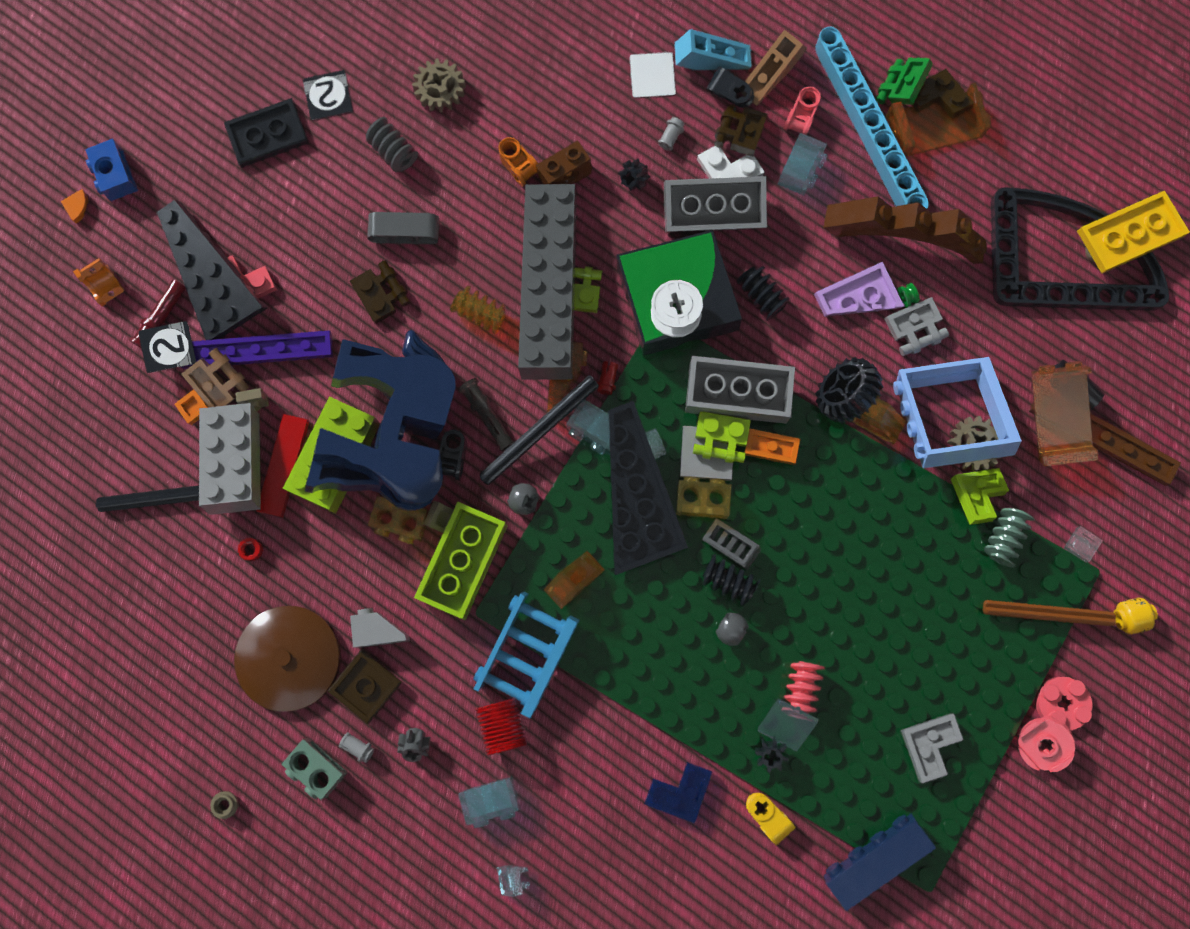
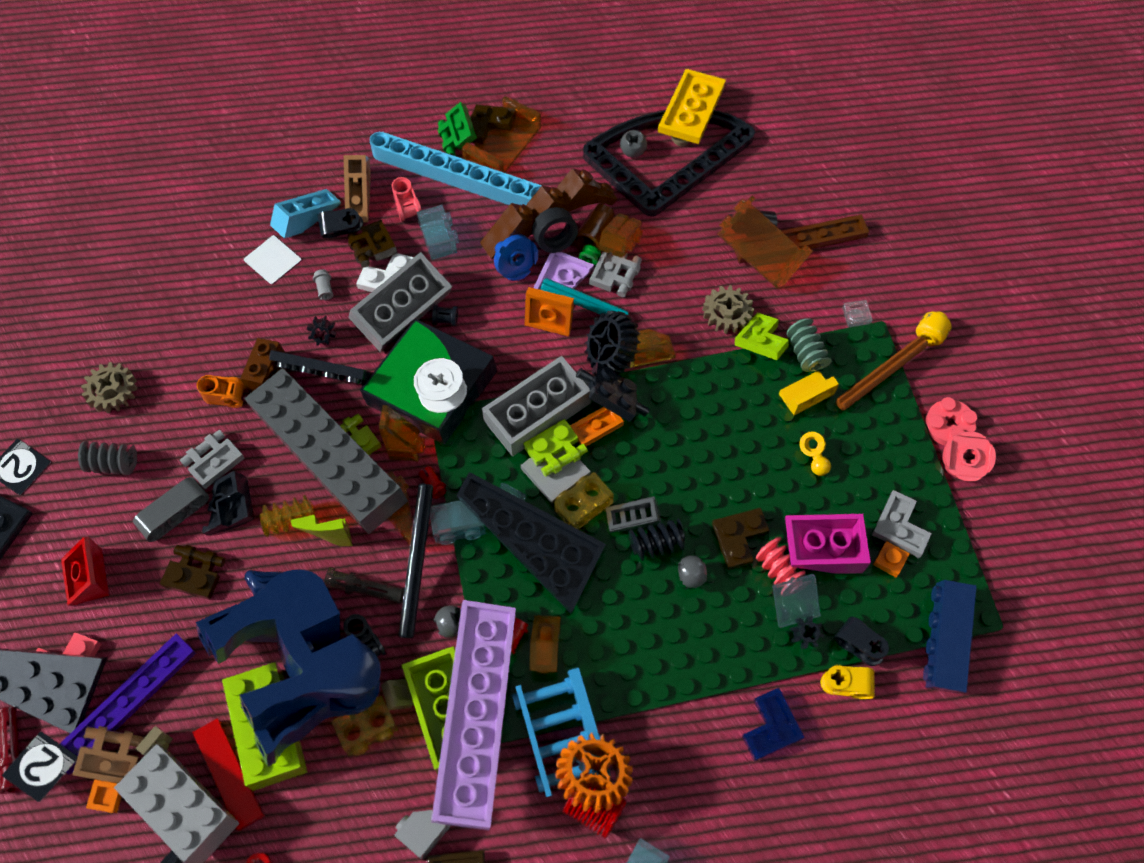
camera: 45 degrees left, 15 degrees down
(306, 225) = (84, 573): none -> red slope
(448, 260) = (230, 504): none -> black slope
(464, 218) = (215, 463): none -> light grey plate
(474, 586) = (474, 717): none -> lavender plate
(502, 354) = (334, 531): none -> lime slope
(518, 694) = (582, 753): none -> orange gear
(557, 552) = (520, 628): none -> red pin
(610, 215) = (316, 367): none -> black plate
(612, 321) = (400, 436): none -> clear orange slope
(738, 238) = (445, 315): none -> black bush
(763, 291) = (489, 332): black piece -> none
(796, 627) = (733, 535): none -> dark brown plate
(807, 794) = (860, 640): none -> black piece
(808, 432) = (613, 391): none -> black plate
(825, 316) = (548, 311): none -> orange plate
(841, 233) = (506, 251): none -> blue plate
(855, 706) = (828, 542): none -> dark pink slope
(864, 330) = (580, 298): none -> teal axle
(896, 762) = (891, 559): none -> orange plate
(897, 237) = (549, 218): none -> black tyre
(917, 639) = (820, 464): none -> yellow plate
(935, 273) = (592, 228): none -> reddish brown plant
(949, 301) = (621, 235): none -> clear orange brick
(969, 572) = (808, 392): none -> yellow panel
(994, 399) = (706, 268): light blue window -> none
(1051, 217) = (633, 143): none -> dark grey piece

